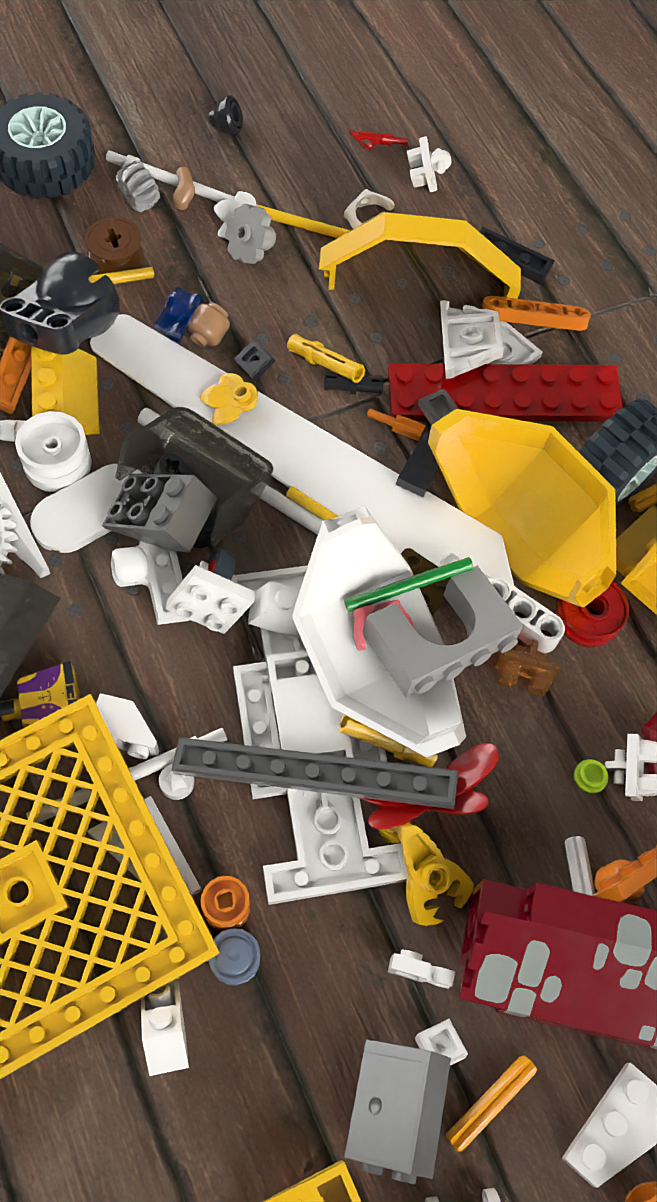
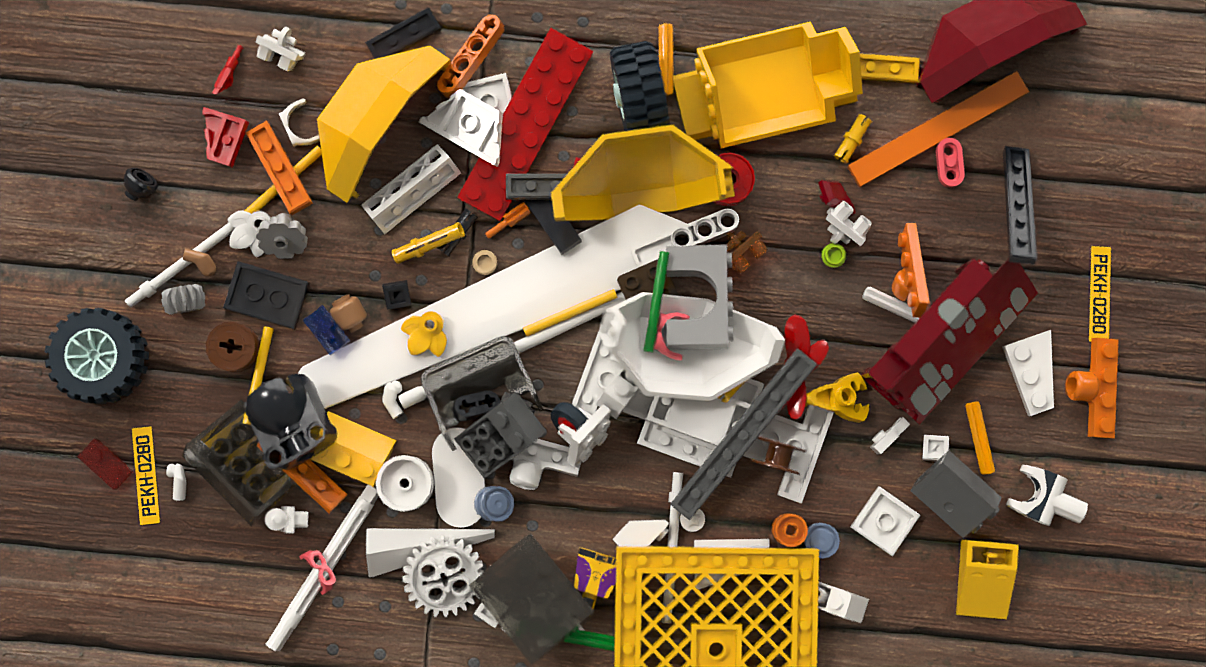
camera: 55 degrees left, 20 degrees up
(77, 549) = (494, 503): none -> sand blue wheel
(140, 402) = (389, 398): none -> white arm
(184, 256) = (266, 295): none -> black tile
(307, 1033) = (885, 521): none -> white tile
(312, 828) = (778, 455): none -> reddish brown piece
(314, 160) = (223, 136): none -> wing
(314, 211) = (279, 168): none -> orange tile
(339, 423) = (485, 262): none -> tan tile
(369, 325) = (412, 191): none -> white fence

